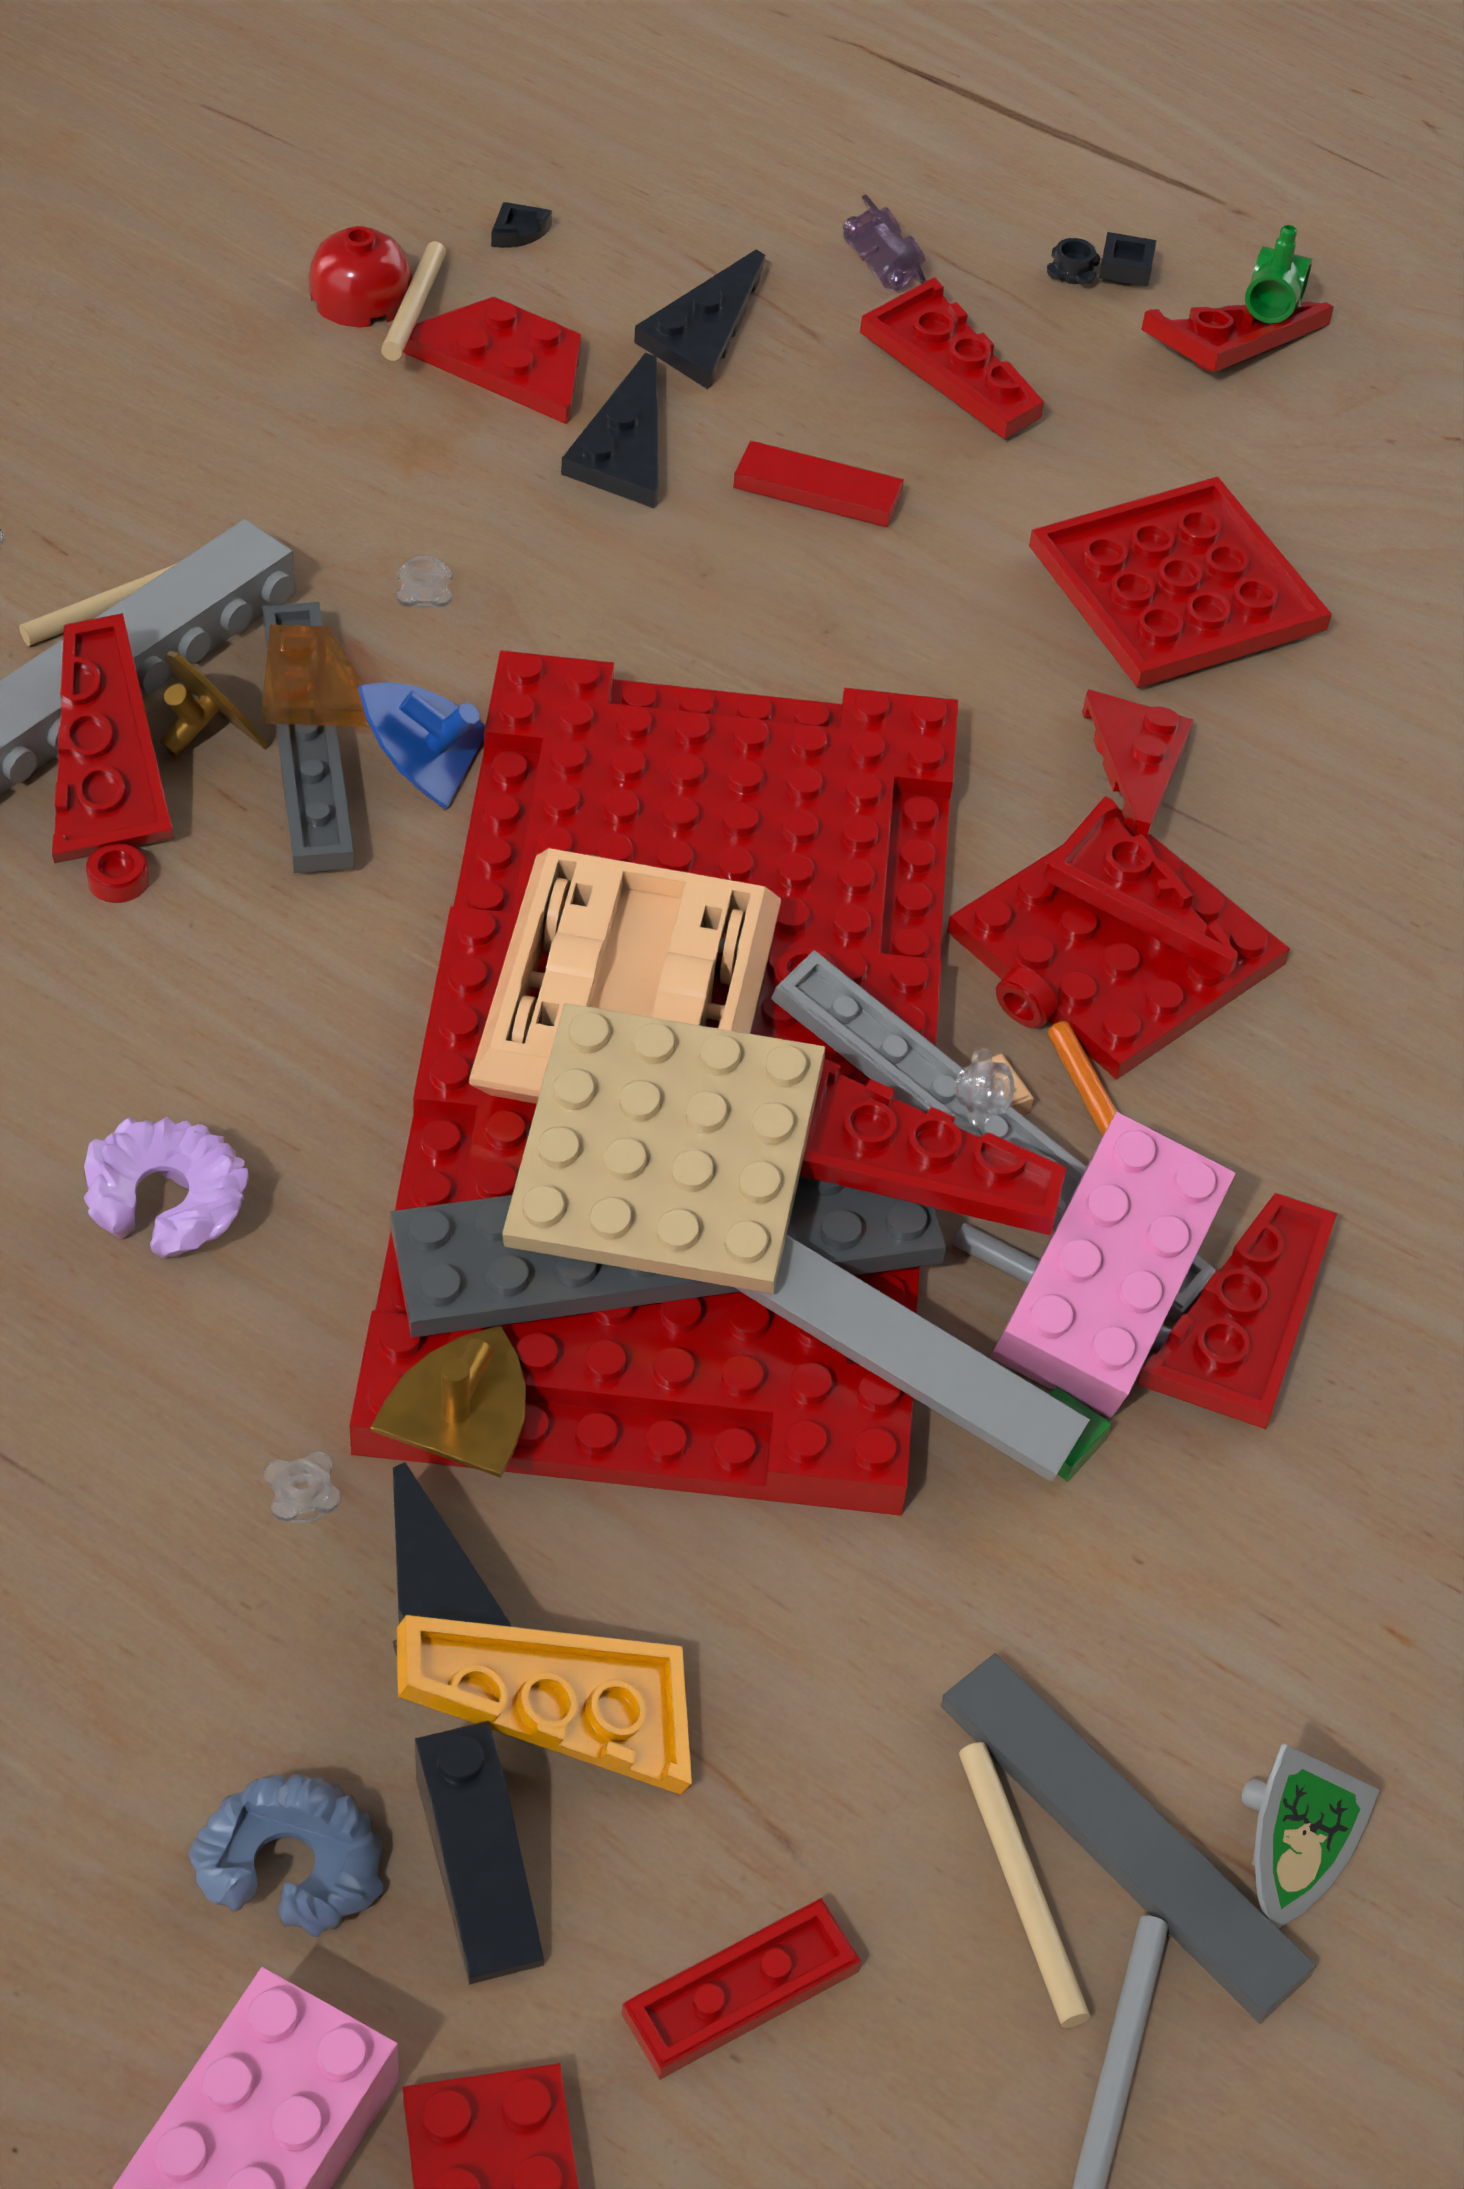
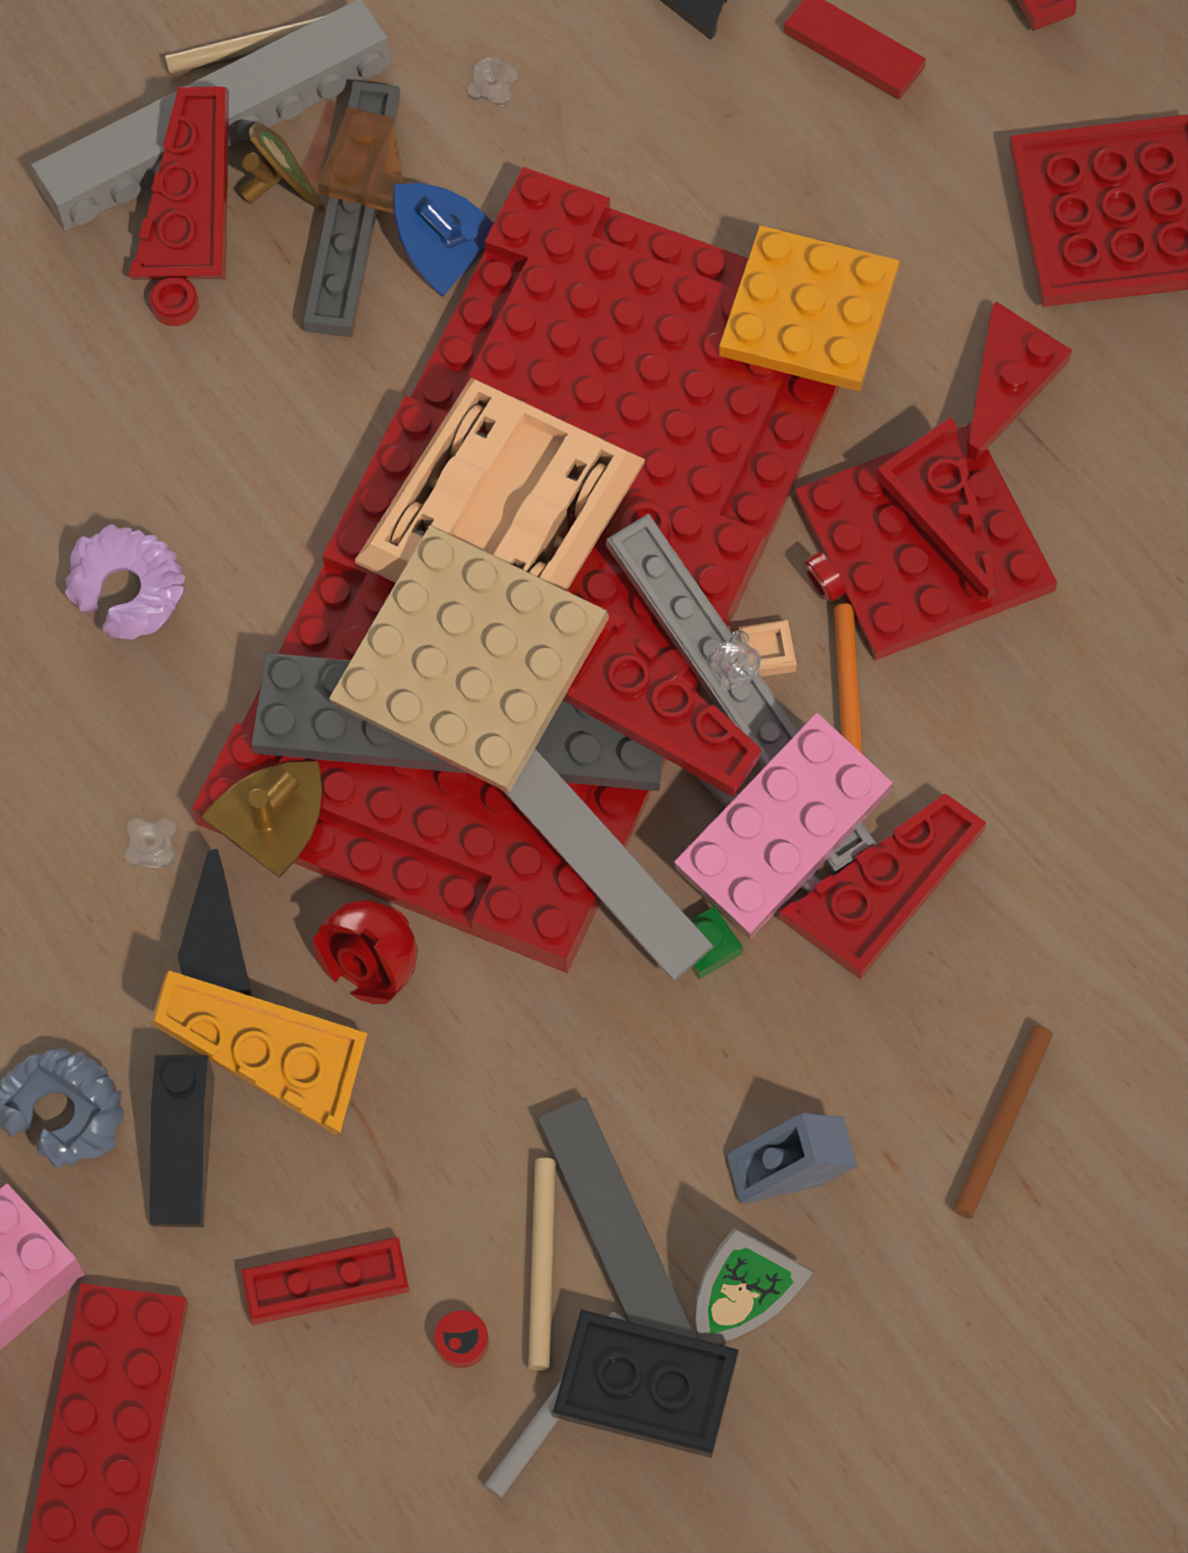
camera: 25 degrees right, 15 degrees up
(646, 1542) = (368, 948): none -> red cylinder
(896, 721) = (809, 308): none -> light orange plate
(957, 2011) = (461, 1339): none -> red tile
(1232, 1995) = (646, 1383): none -> black tile
(1285, 1657) = (792, 1157): none -> sand blue slope

